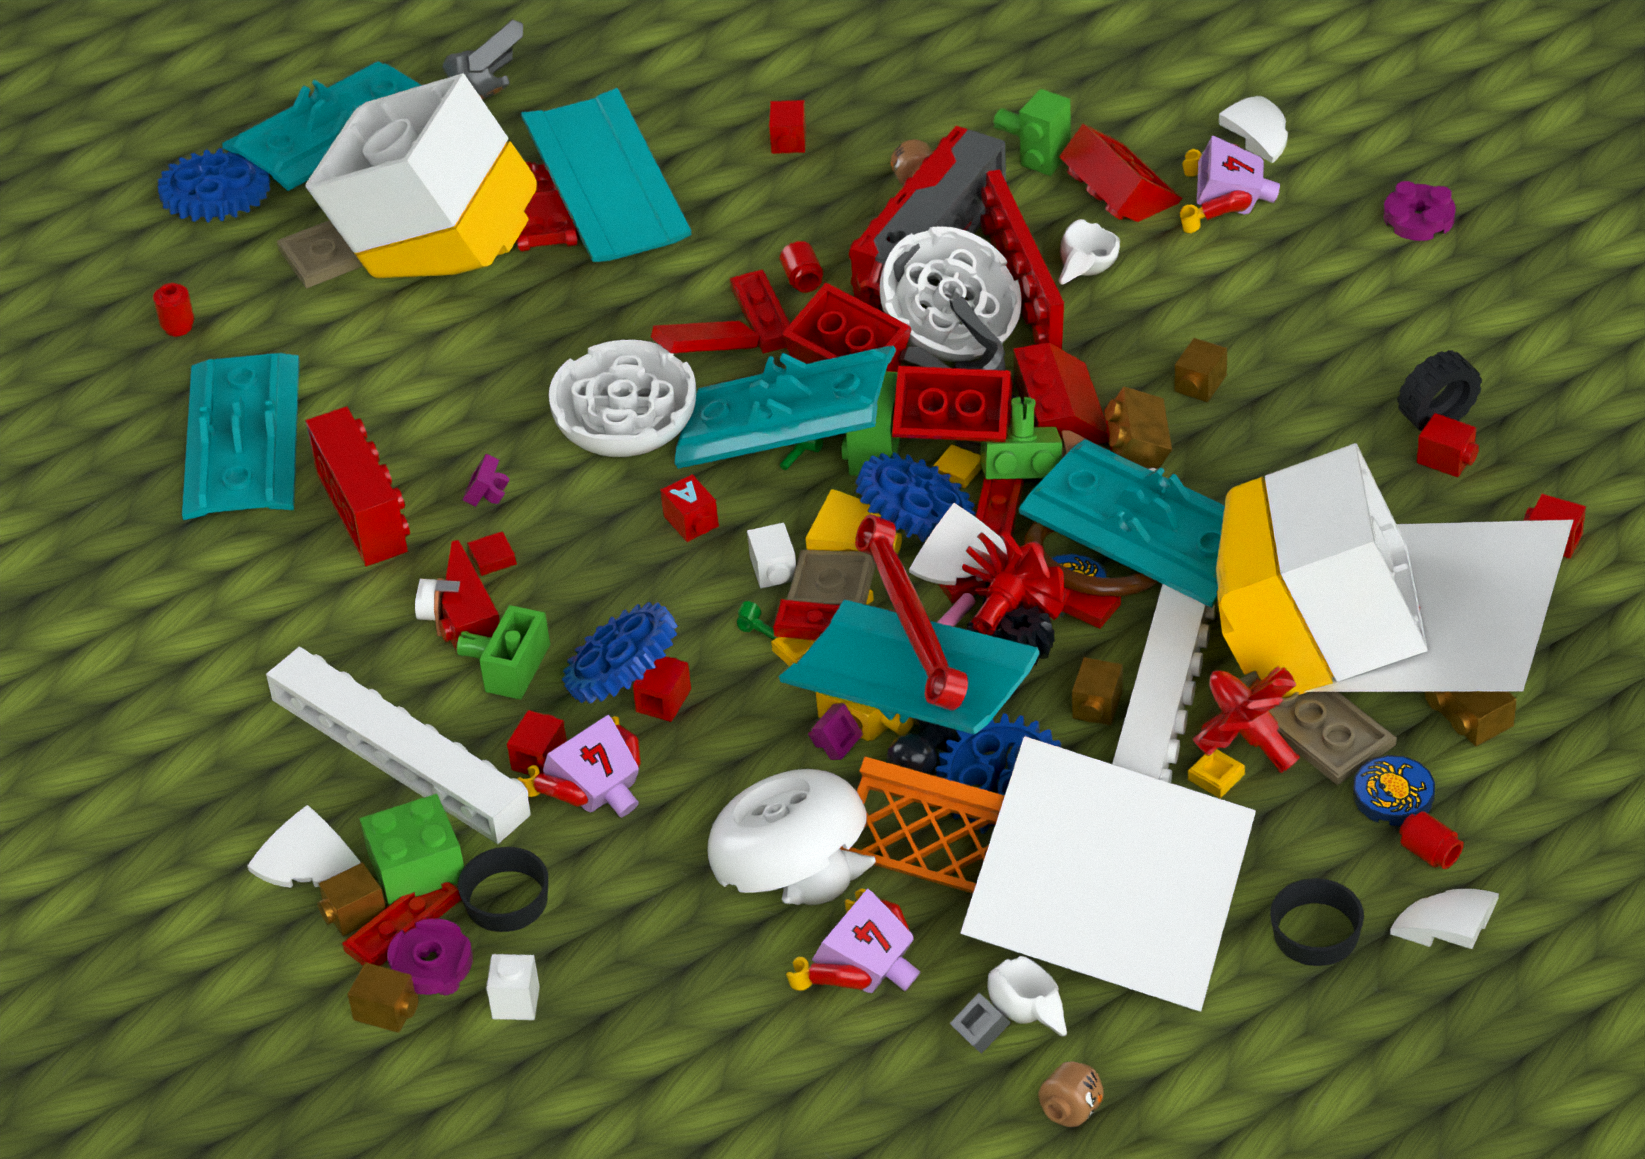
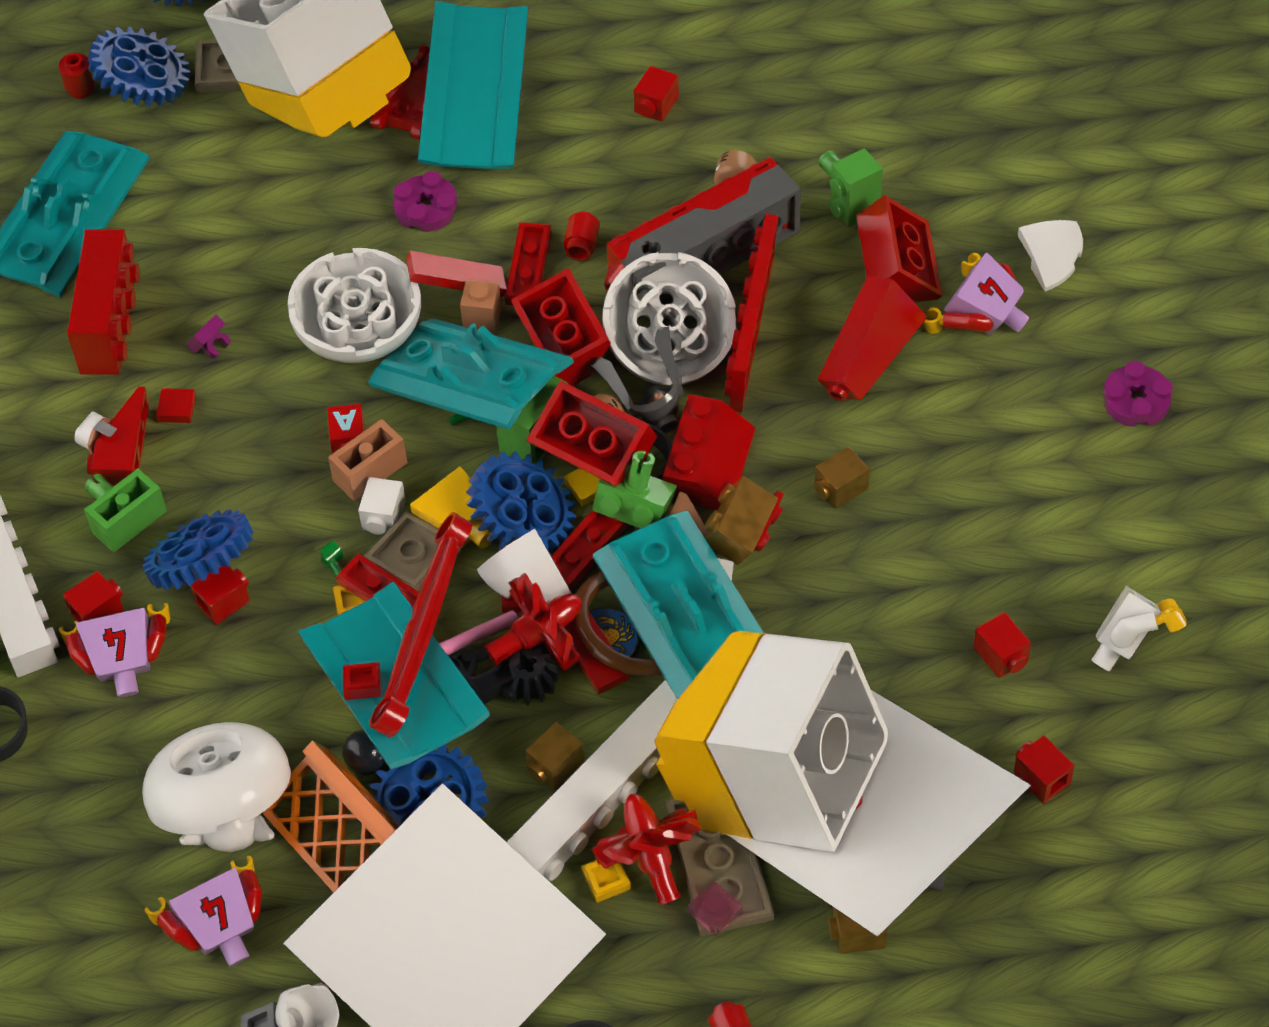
camera: 25 degrees right, 10 degrees up
(238, 278) = (138, 66): none -> blue gear
(620, 281) = (425, 187): none -> magenta plate
(733, 511) = (373, 453): none -> nougat brick
(745, 352) = (481, 305): none -> nougat brick
(836, 732) = (323, 700): magenta tile -> none
(885, 681) = (362, 681): none -> red tile
(1087, 250) = (817, 318): white piece -> none
(1148, 246) = (870, 338): none -> red slope
(1341, 751) = (714, 908): none -> clear pink plate
(1393, 789) = (739, 965): tile -> none
(1429, 378) = (1023, 590): black tyre -> none
(1554, 377) = (1129, 623): none -> white torso

